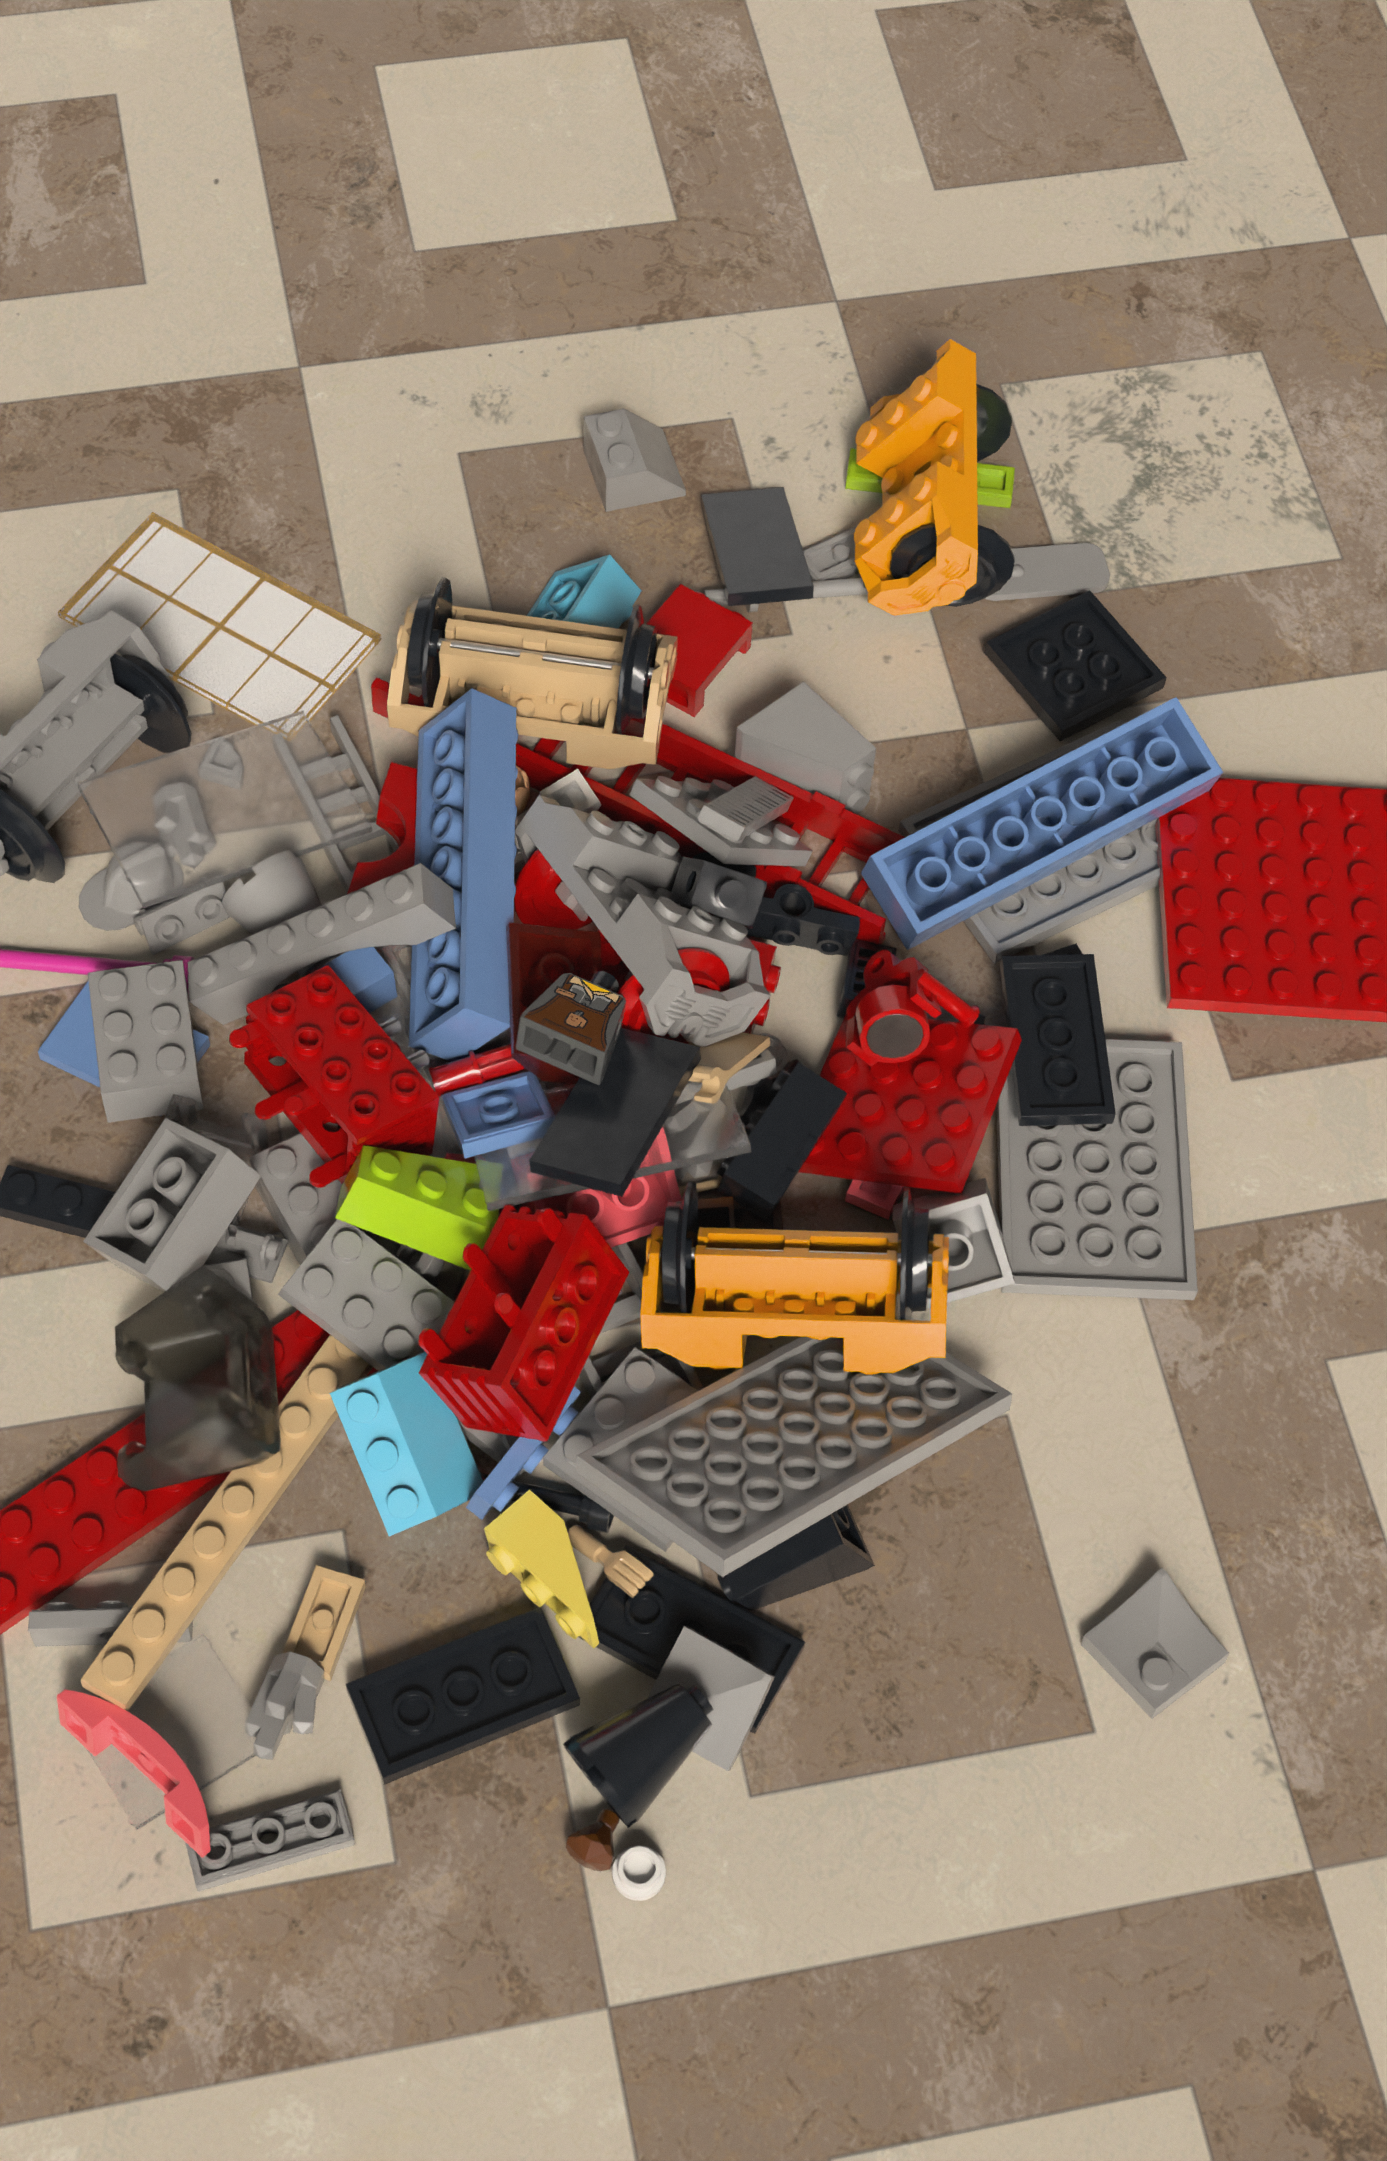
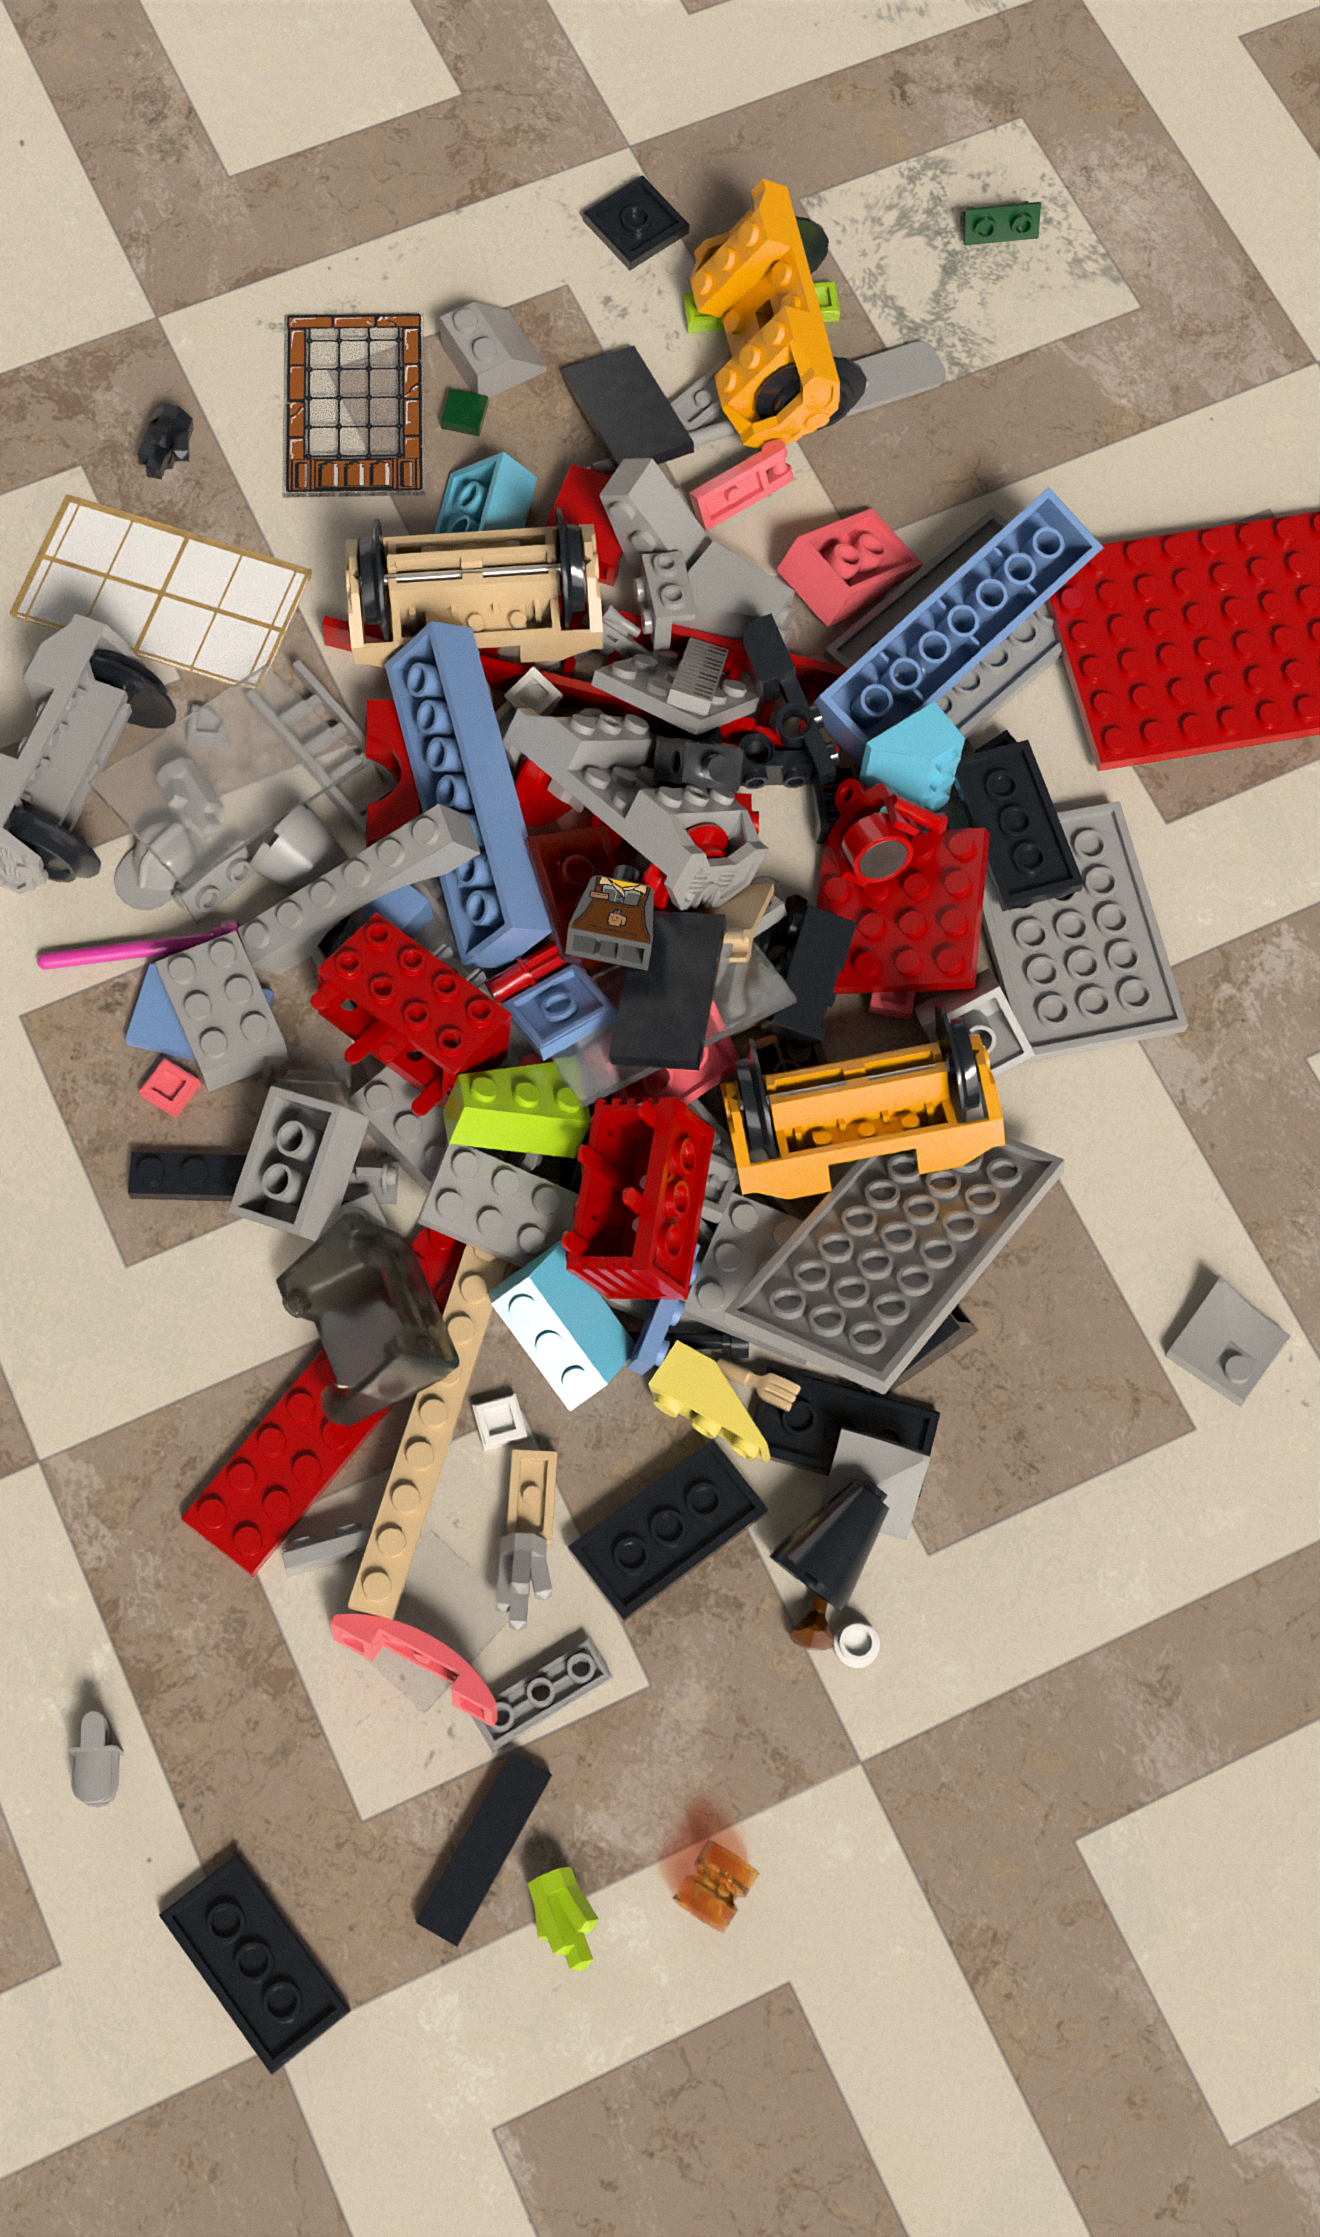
camera: 15 degrees left, 10 degrees up
(70, 1111) = (169, 1088): none -> coral tile
(153, 1994) = (484, 1849): none -> black tile
(218, 2086) = (563, 1916): none -> lime rock
(268, 480) = (166, 440): none -> black rock
(313, 1536) = (499, 1422): none -> white tile
(404, 2078) = (715, 1886): none -> clear orange wheel
(474, 488) = (354, 405): none -> piece
(587, 516) = (464, 412): none -> dark green tile
(619, 1332) = (719, 1183): none -> light grey slope
(673, 758) = (615, 634): none -> light grey piece
(737, 724) = (664, 594): none -> light grey bracket
(742, 649) = (650, 515): none -> light grey wedge
(821, 372) = (636, 222): none -> black tile
(833, 842) = (774, 678): none -> black plate
(857, 643) = (742, 485): none -> coral plate
(947, 744) = (847, 565): none -> coral slope
(960, 942) = (916, 758): none -> medium azure slope
(1075, 665) = (937, 464): black plate -> none
(1209, 445) = (1001, 223): none -> dark green hinge

